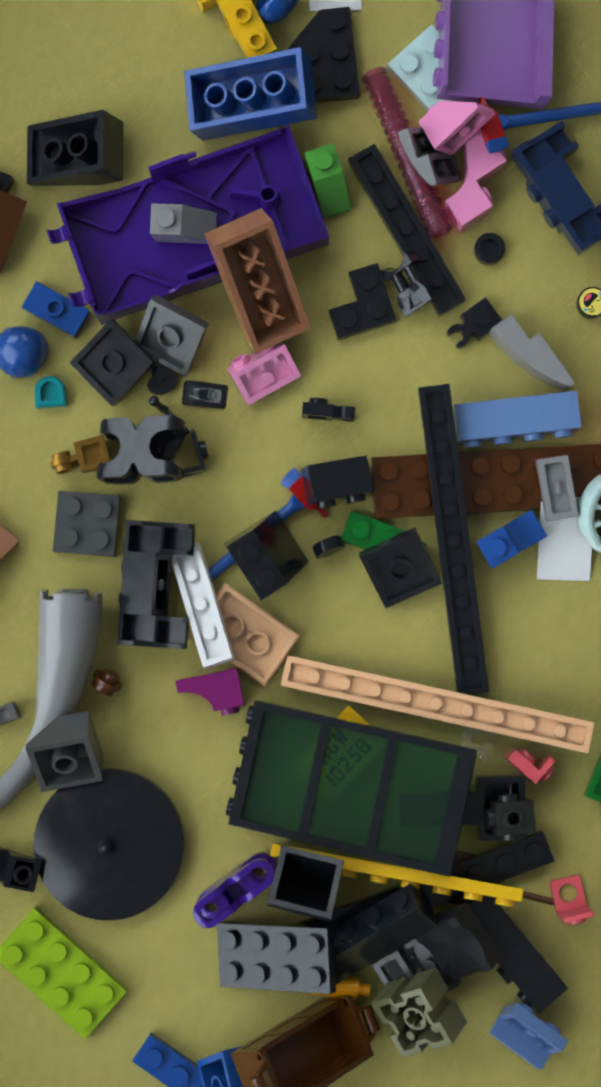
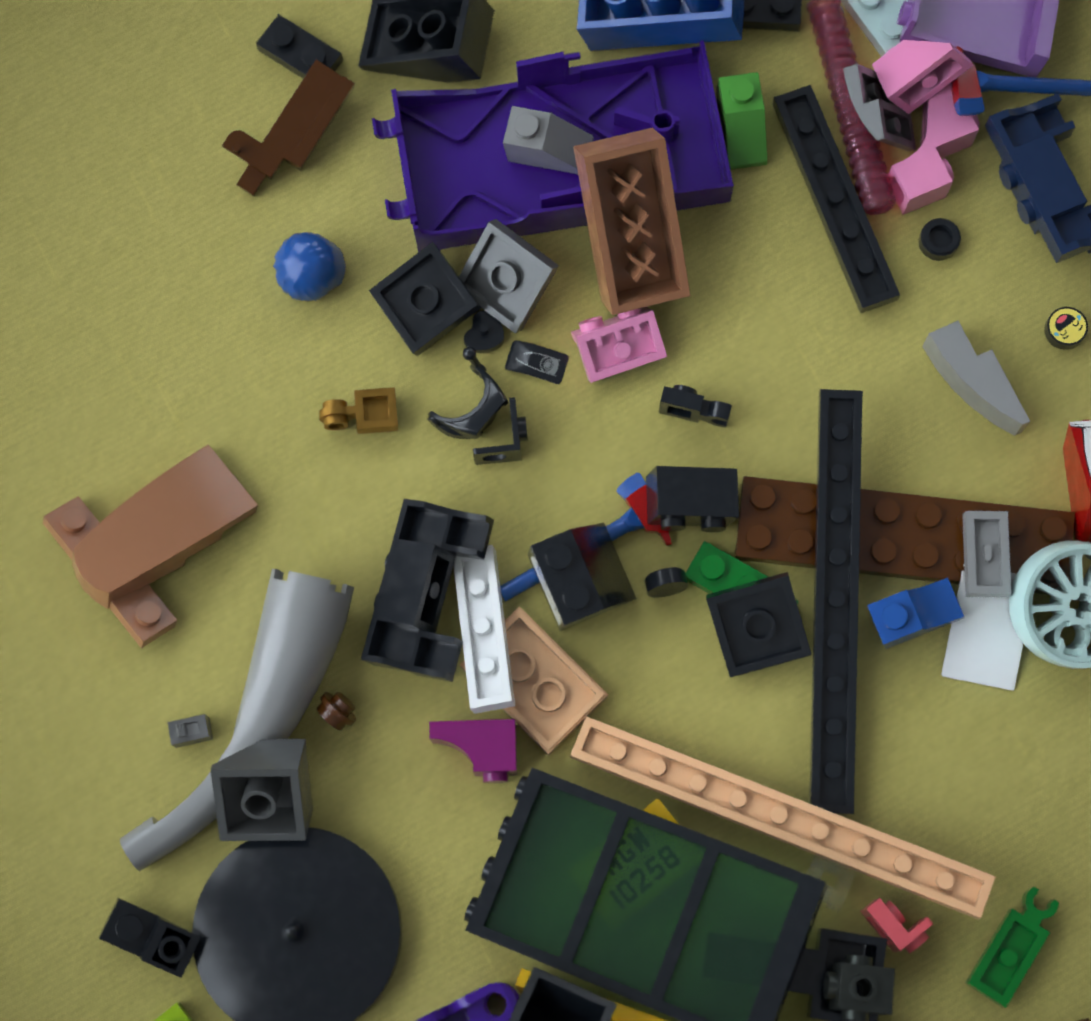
camera: 15 degrees right, 10 degrees down
(50, 393) = (336, 326): teal tile -> none
(55, 309) = (364, 224): blue plate -> none
(86, 524) = (350, 500): dark grey plate -> none
(140, 450) = (440, 412): piece -> none
(371, 308) = (771, 290): black plate -> none
(414, 296) = (832, 279): black piece -> none
(477, 321) = (908, 327): black plate -> none
(517, 418) = (945, 457): medium blue brick -> none

